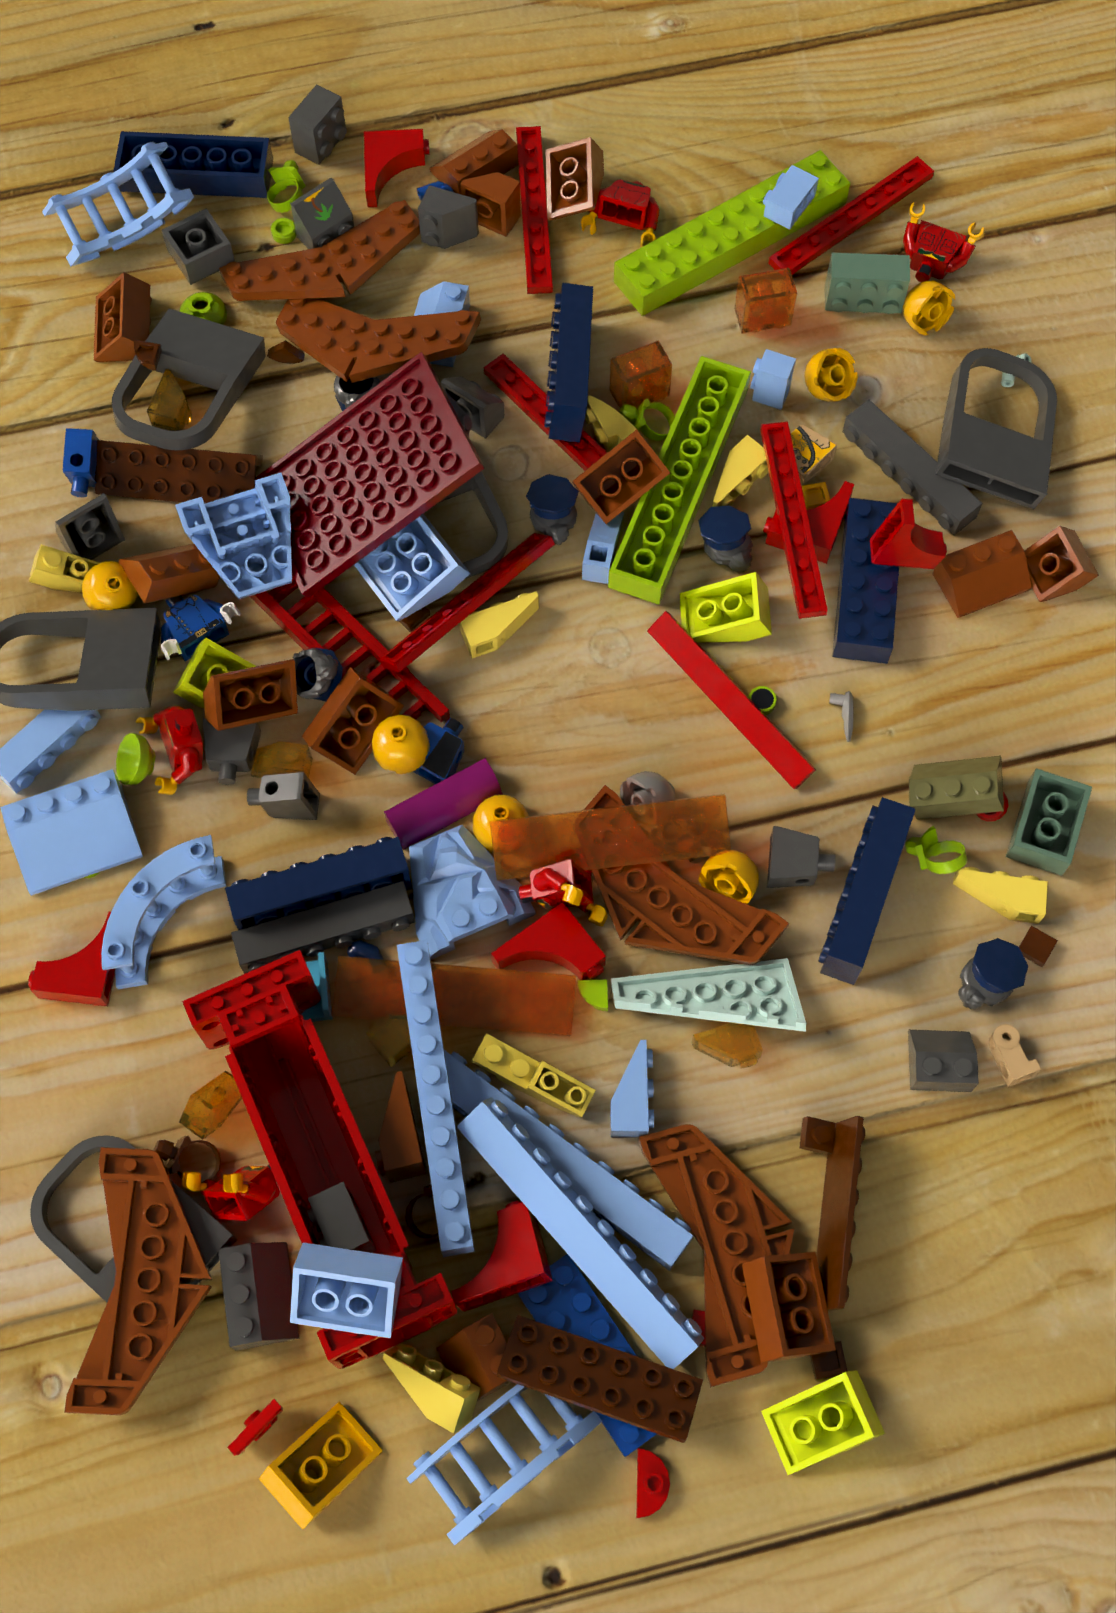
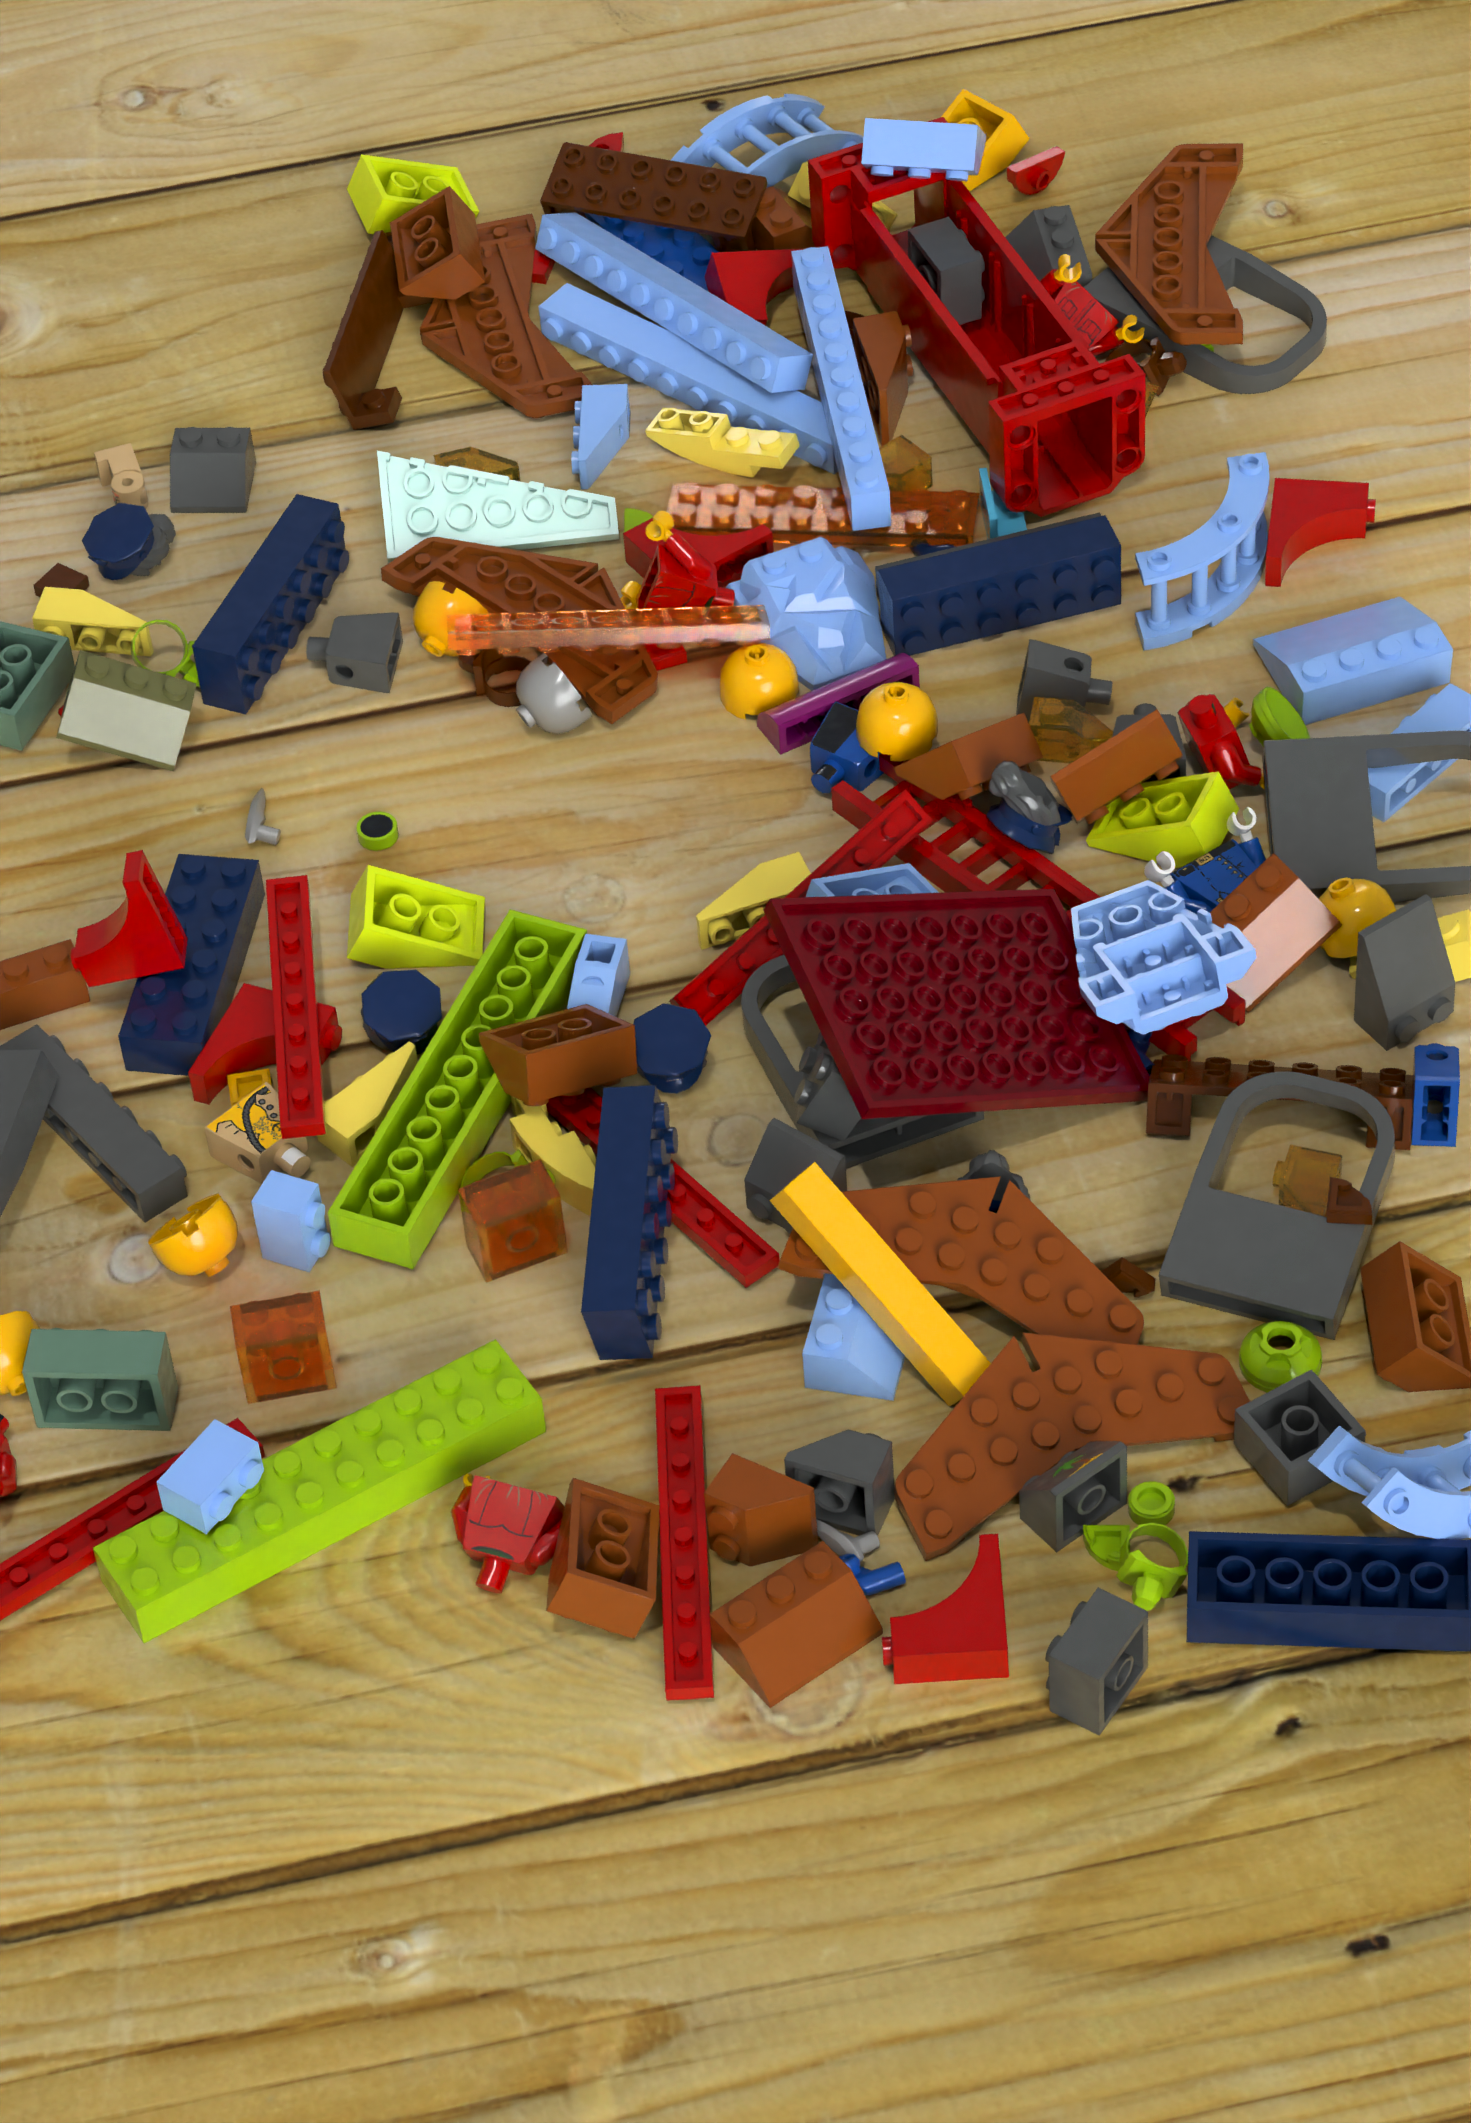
camera: 175 degrees left, 20 degrees down
(422, 297) = (881, 1283): none -> yellow brick
(731, 700) = (423, 824): red tile -> none

